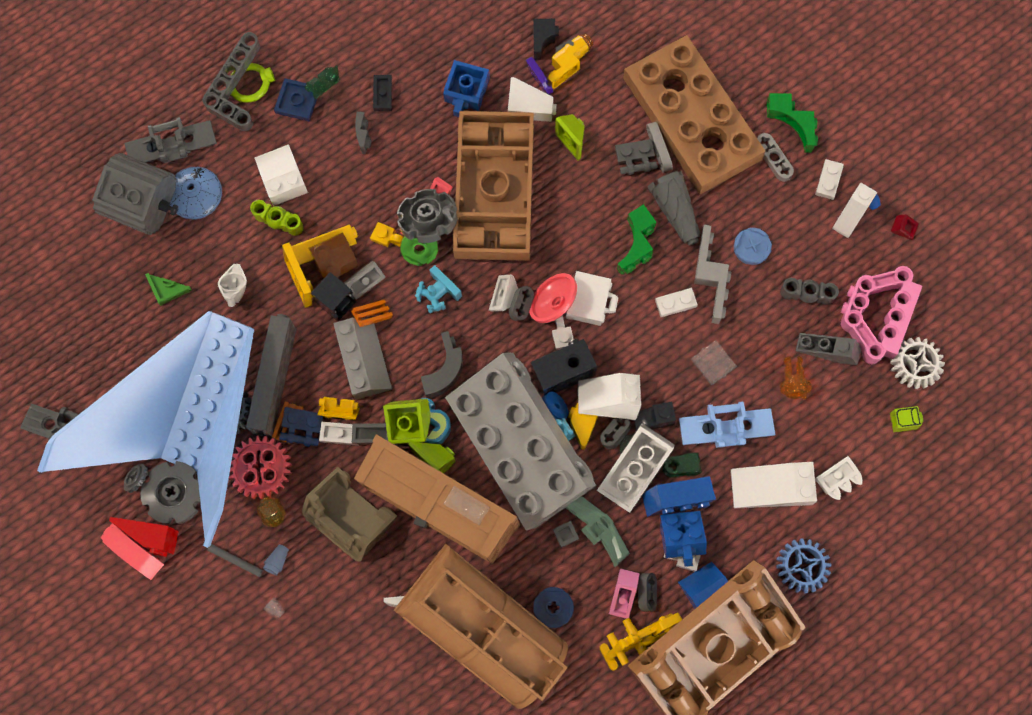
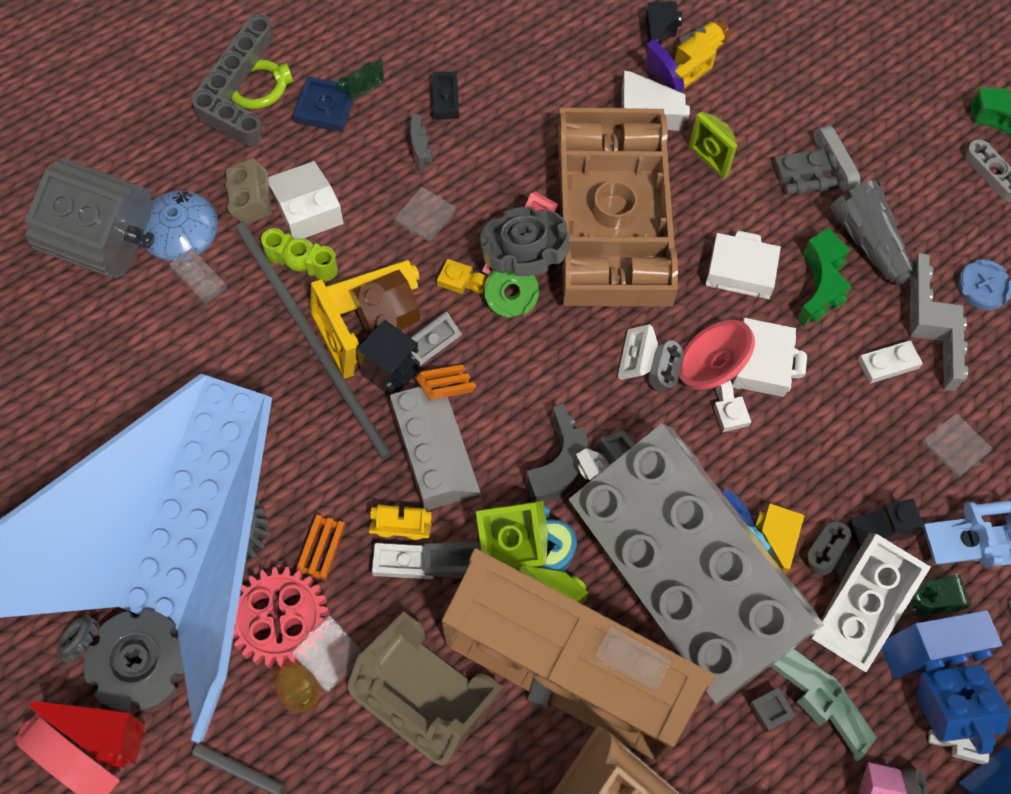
camera: 10 degrees left, 10 degrees down
(165, 289) = (133, 356): bright green tile -> none
(172, 148) = (150, 164): dark grey piece -> none
(208, 232) = (198, 276): none -> clear plate
(233, 284) = (235, 346): white hat -> none
(242, 170) = (248, 191): none -> dark tan brick
(271, 376) = (295, 477): dark grey brick -> none
(276, 560) = (306, 768): sand blue cone -> none
(284, 278) = (314, 342): none -> dark grey piece
(289, 491) = (327, 653): none -> clear piece
(300, 420) = (345, 543): dark blue plate -> none
(365, 186) = (425, 214): none -> clear piece
(436, 291) = (545, 343): medium azure piece -> none
(462, 373) = (591, 463): none -> white plate
(466, 86) = (562, 82): blue hinge -> none
(481, 359) = (615, 445): none -> dark grey plate
(554, 372) = (747, 450): black piece -> none
(582, 229) = (743, 264): none -> white piece
(610, 396) = (820, 493): white slope -> none
(693, 114) = (877, 113): medium nougat plate -> none

